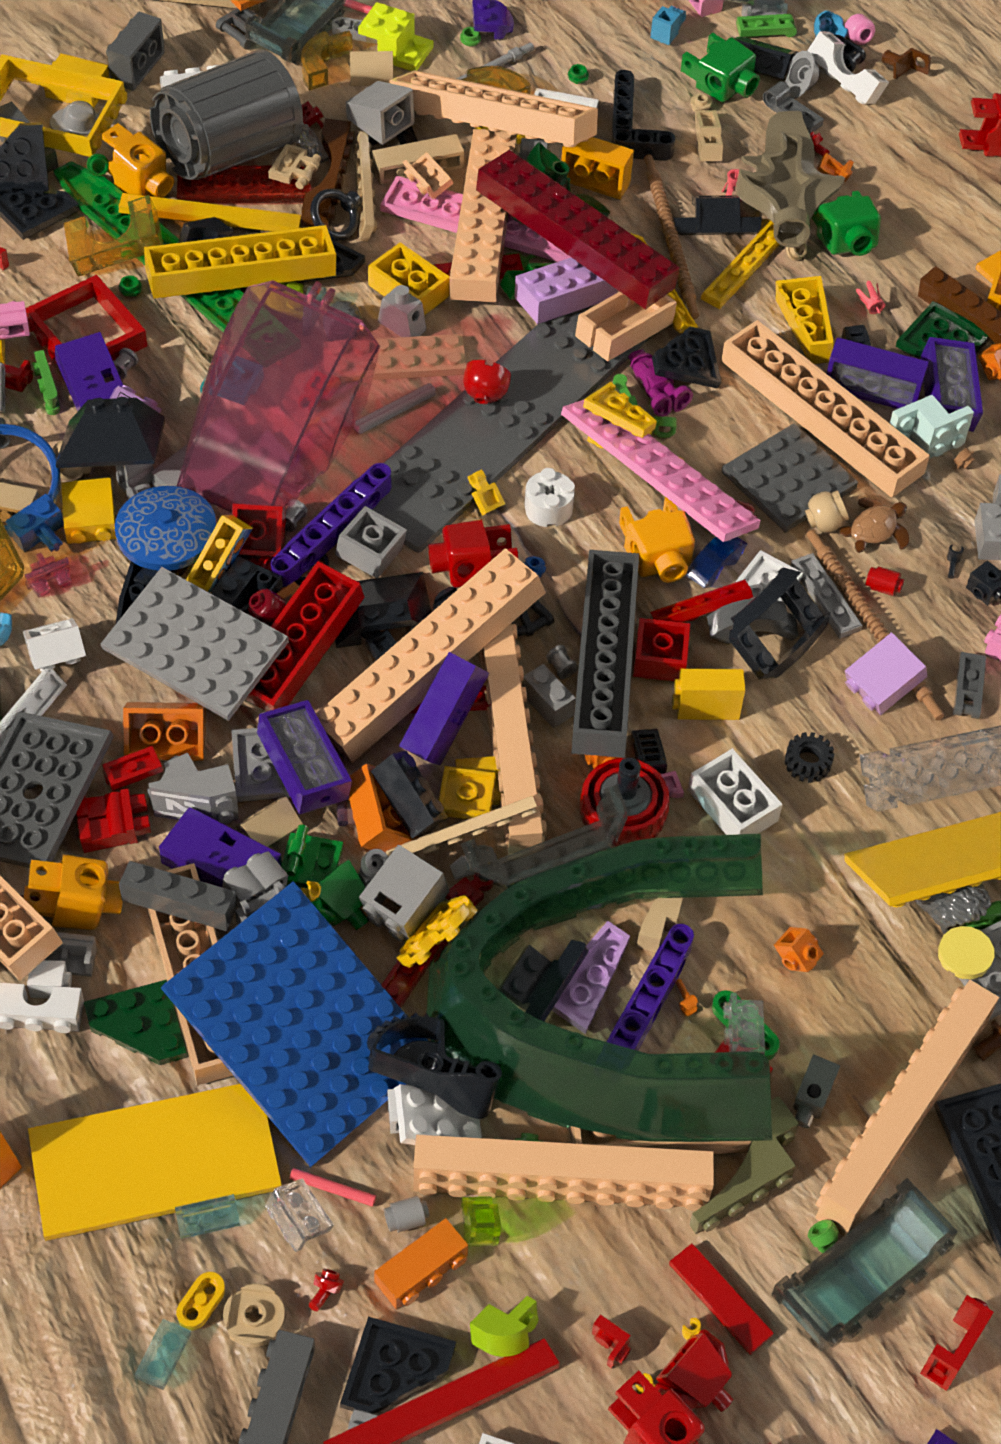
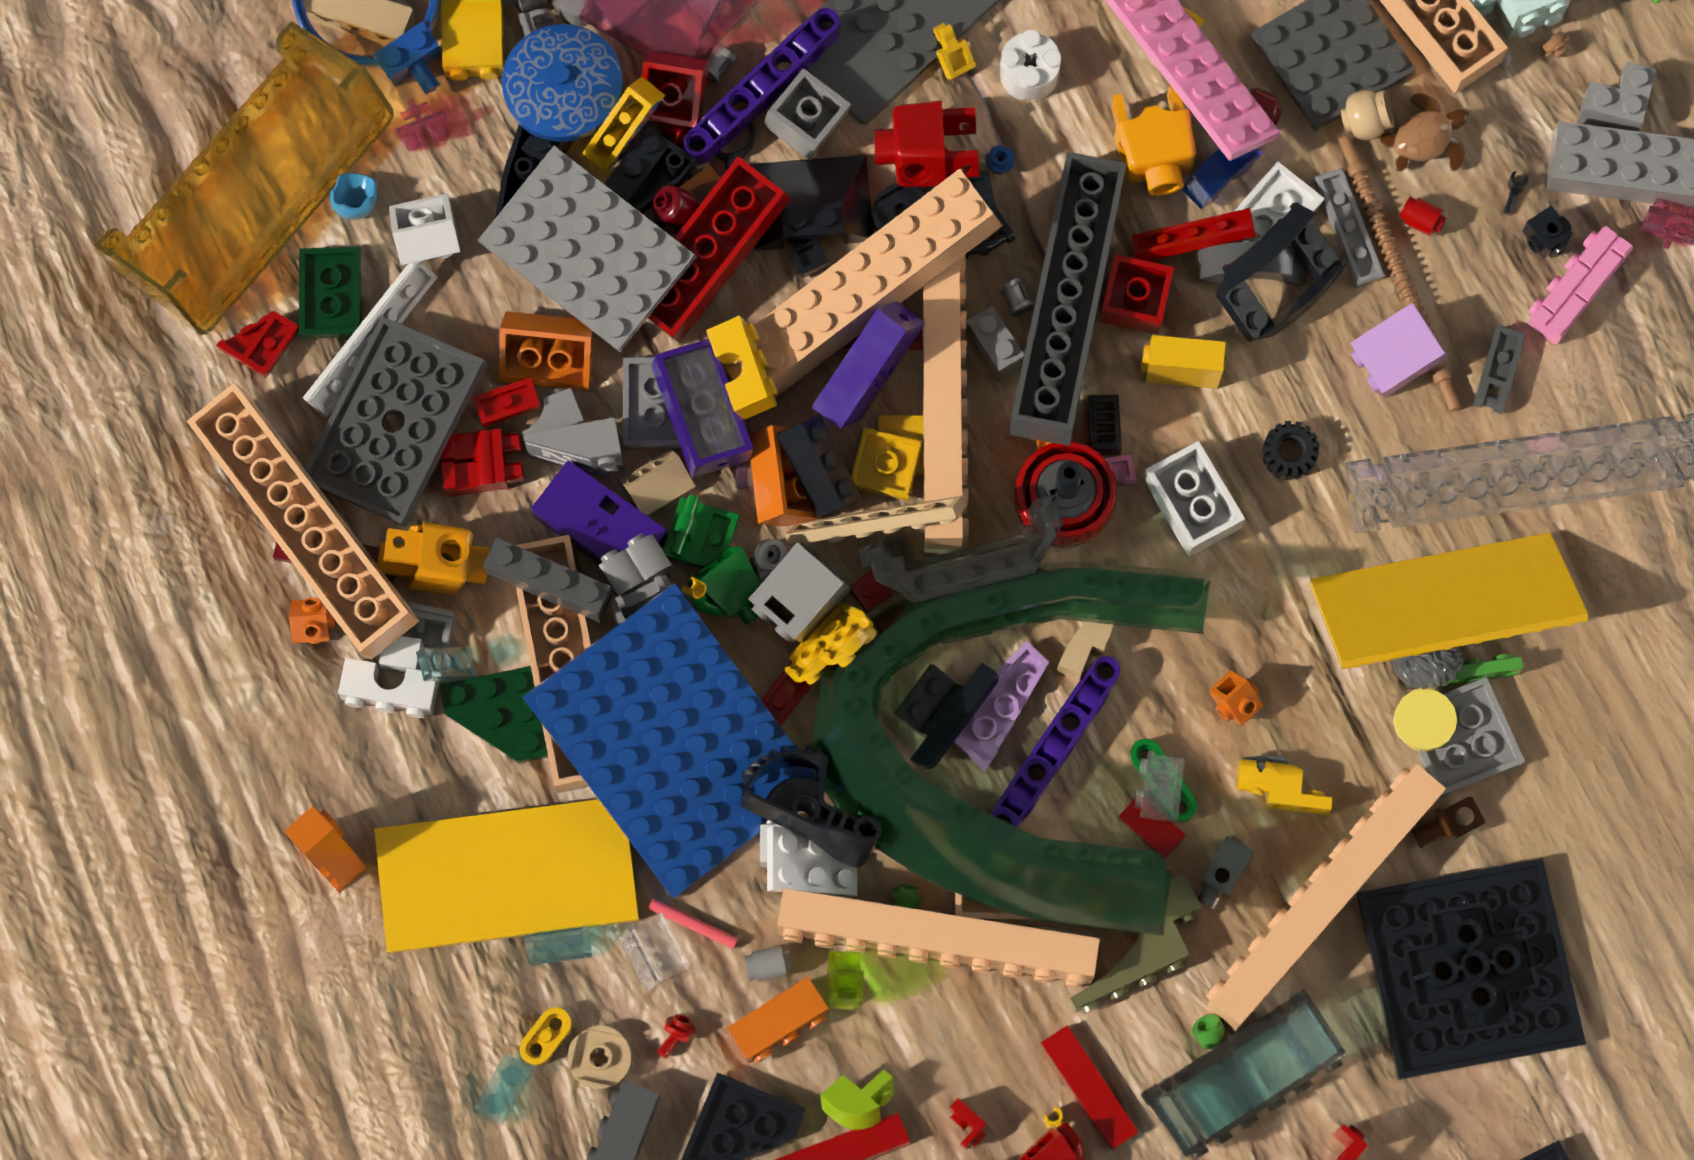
camera: 10 degrees right, 20 degrees up
(88, 980) = (445, 663): none -> clear light blue plate
(344, 732) = (752, 390): none -> yellow arch
(689, 1004) = (1104, 749): orange hand -> none
(852, 1020) = (1281, 783): none -> yellow plate

